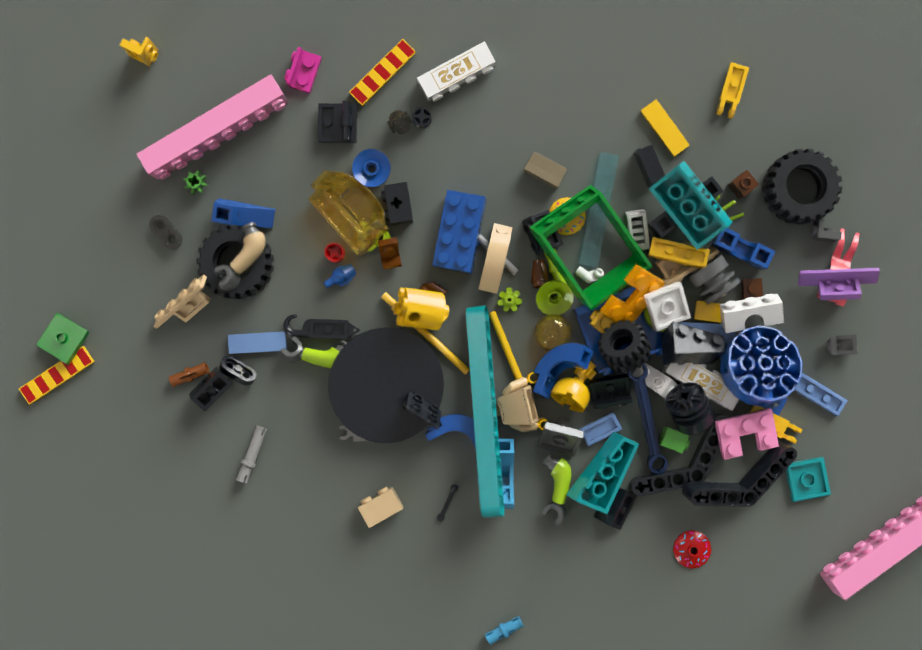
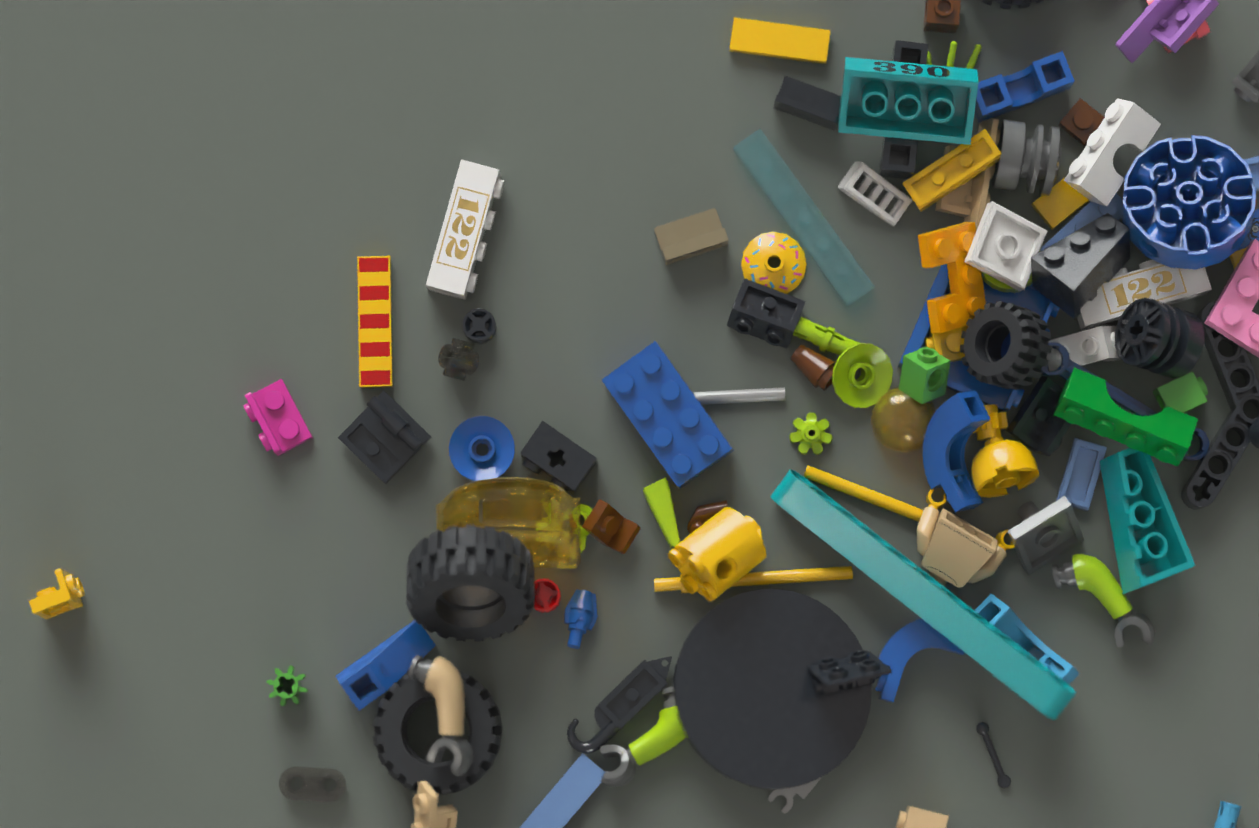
camera: 40 degrees left, 5 degrees down
(213, 128) = (244, 596): bright pink brick -> none
(307, 216) = (470, 583): none -> black tyre
(420, 263) = (661, 505): none -> lime slope
(495, 258) = (743, 401): tan arch -> none
(579, 323) = (924, 375): none -> bright green brick
(589, 276) = (877, 306): white arm -> none
(613, 280) = (910, 280): green window -> none
(619, 509) = (1204, 547): black panel -> none
(632, 405) = (1090, 406): none -> green arch

